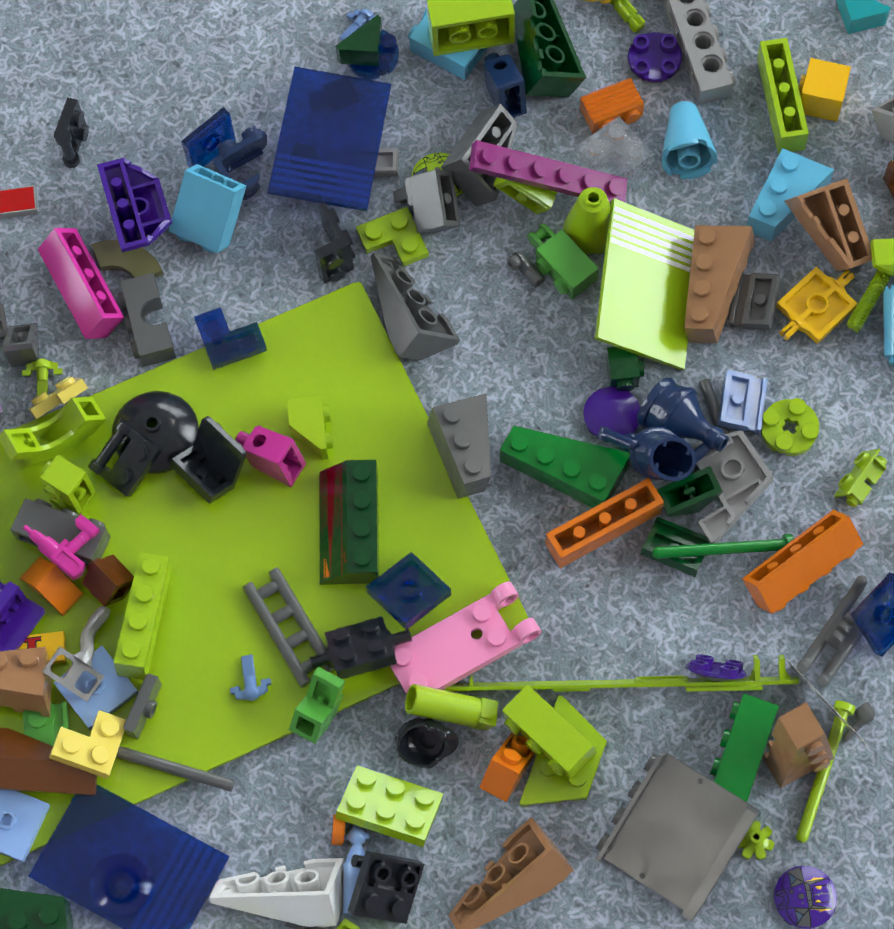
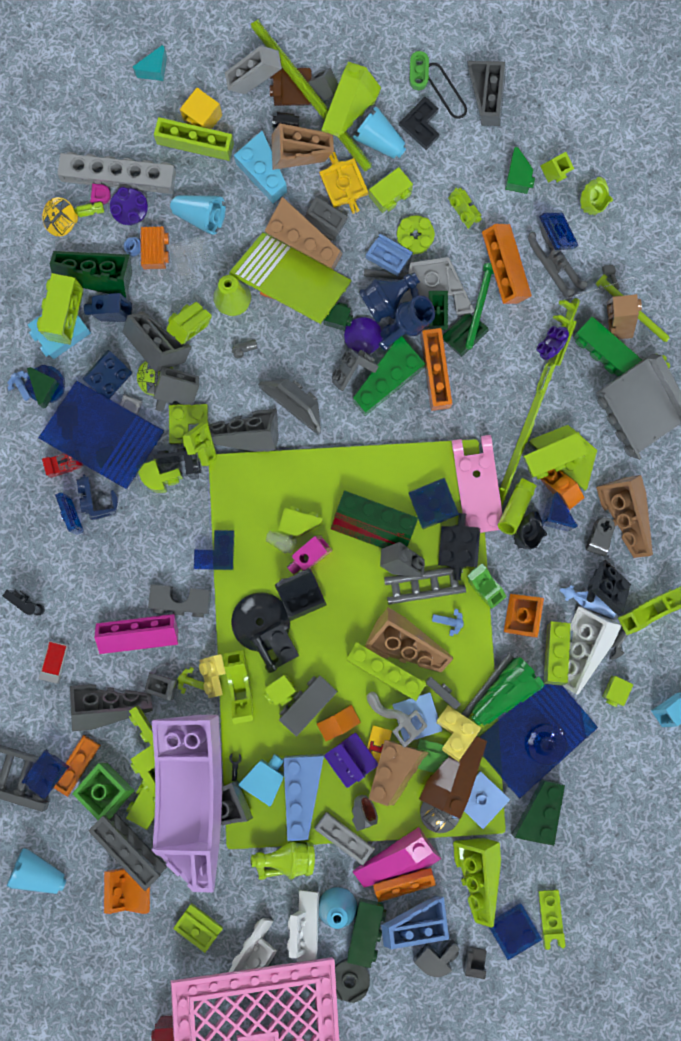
camera: 70 degrees left, 15 degrees up
(63, 554) = (328, 708): dark pink piece -> none
(108, 580) = (352, 686): reddish brown brick -> none
(133, 262) = (128, 597): olive tile -> none
(134, 203) = (96, 579): dark purple wedge -> none
(185, 800) = (513, 686): none -> green cone
(197, 624) = (402, 640): none -> medium nougat wedge
(207, 208) = (120, 532): medium azure brick -> none
(259, 847) = (557, 653): none -> lime brick
(268, 106) = (60, 465): none -> red leg
(276, 412) = (281, 541): none -> clear cone
(298, 784) = (523, 615): none -> orange slope
(299, 225) = (154, 480): none -> lime brick
(309, 579) = (402, 561): none -> dark grey slope
(338, 832) = (561, 602): orange tile -> none
(370, 257) = (200, 442): none -> lime plate
(389, 806) = (560, 566): plate -> none
(414, 115) = (107, 375): none -> dark blue bracket
(453, 851) = (600, 539): none -> dark grey piece
(463, 443) = (350, 432): dark grey wedge -> none
(463, 767) = (557, 515): none -> clear blue slope
(480, 357) = (295, 401): none -> dark grey wedge
(543, 172) = (191, 306): magenta plate -> none
(563, 261) = (249, 323): bright green brick -> none
(571, 412) = (349, 364): none -> dark grey bracket
(601, 79) = (132, 246): none -> medium blue plate
(656, 18) = (100, 193): none -> dark pink tile
(835, 368) = (391, 190): none -> lime brick
(866, 199) = (285, 118): none -> black brick

